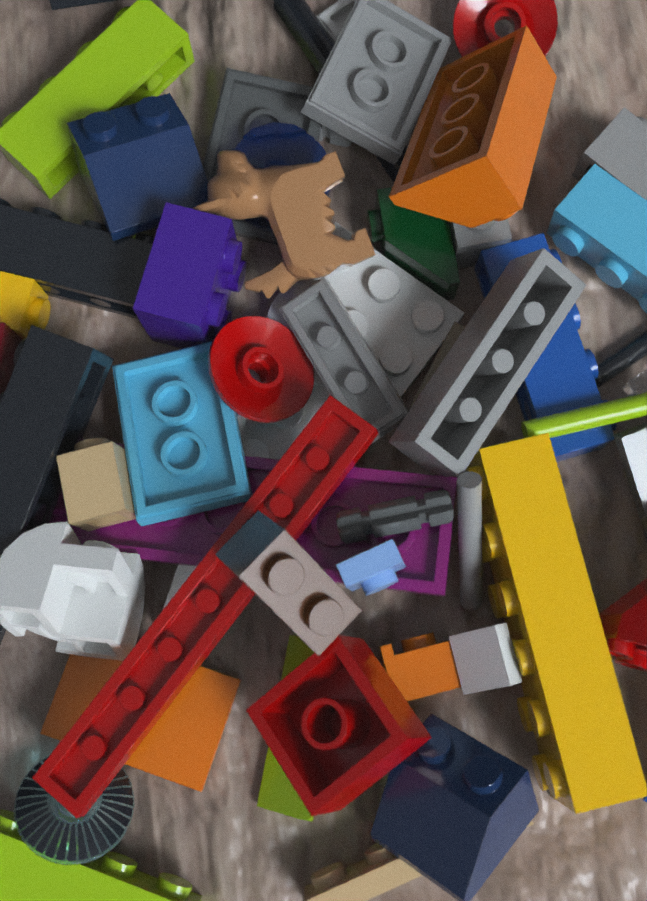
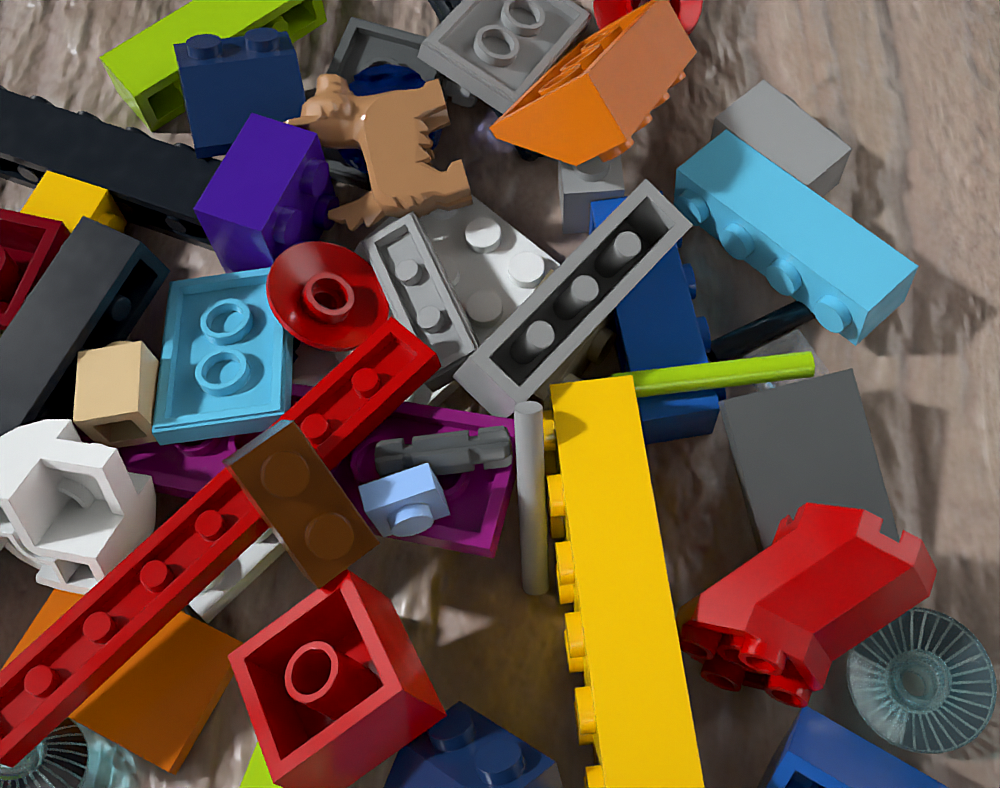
camera: 10 degrees right, 15 degrees down
(415, 244) = (524, 192): dark green slope -> none
(421, 667) = (463, 649): orange brick -> none
(485, 659) = (531, 635): white tile -> none

